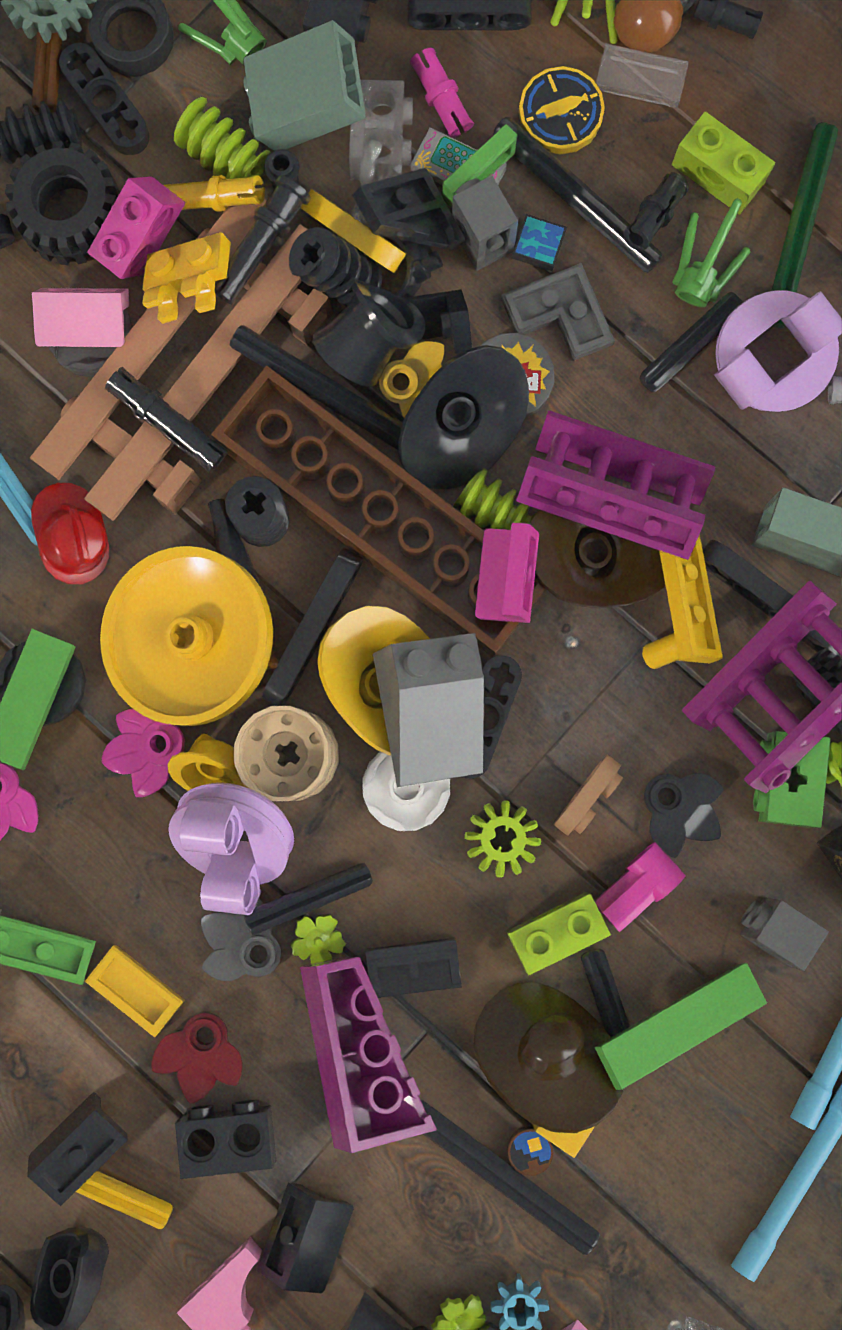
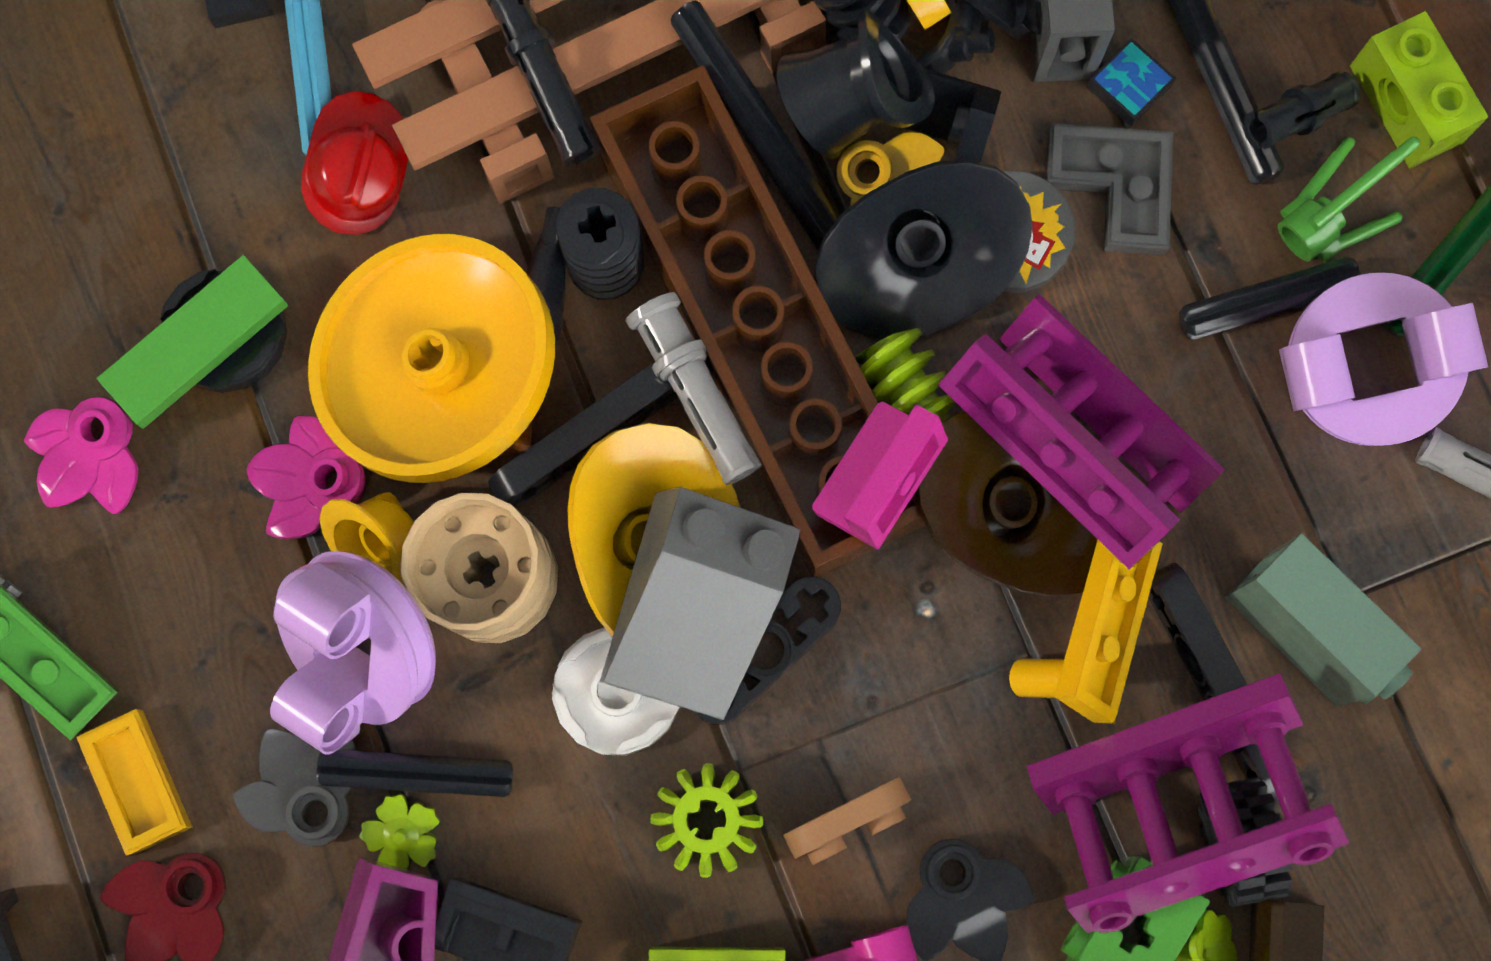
camera: 25 degrees right, 5 degrees down
(348, 564) = (682, 363): none -> light grey pin

